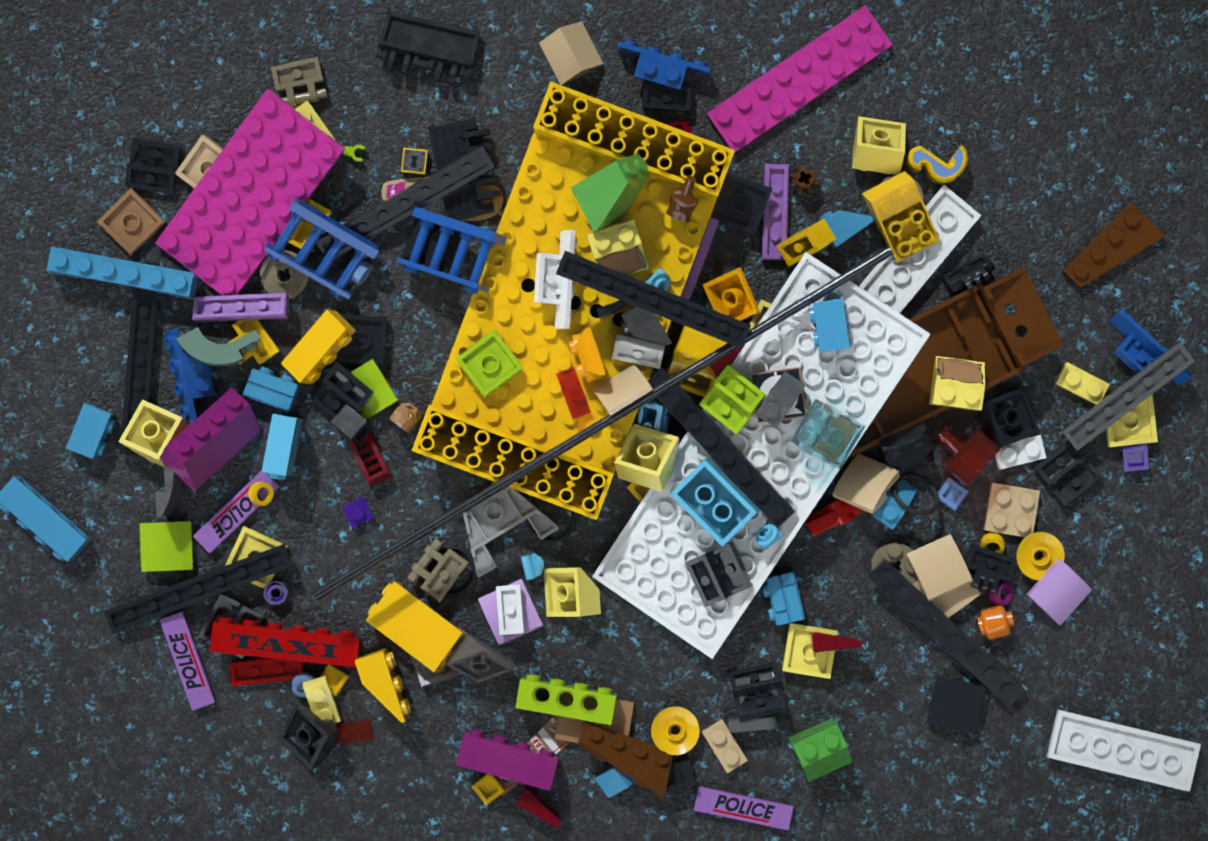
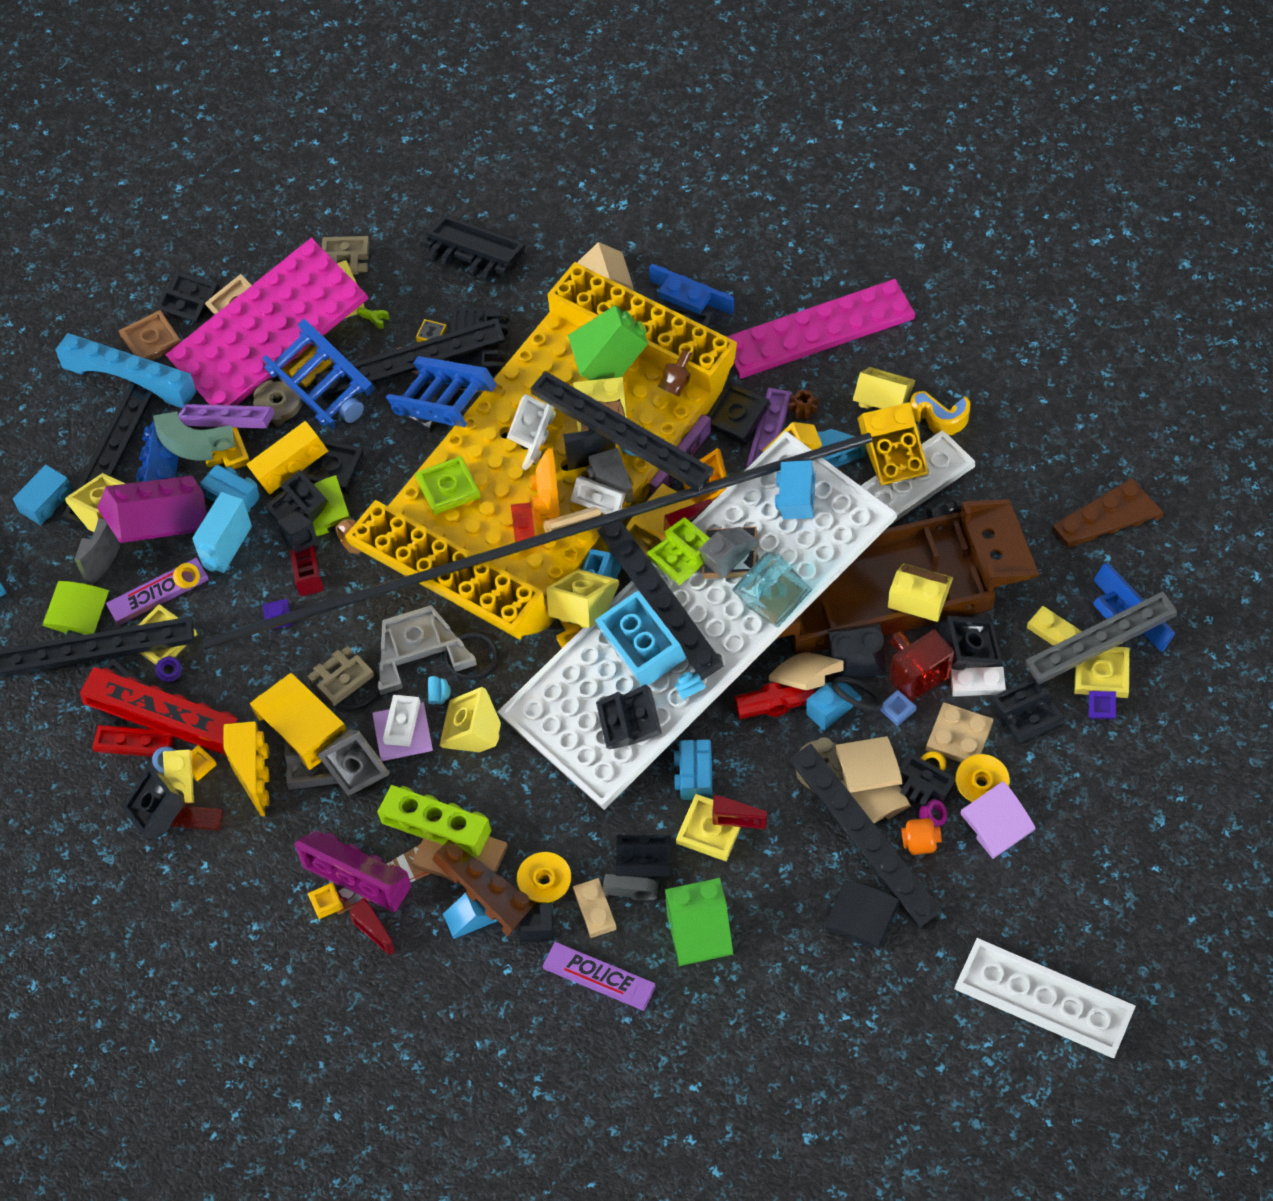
camera: 10 degrees right, 30 degrees down
(187, 660) = (56, 717): medium lavender tile -> none

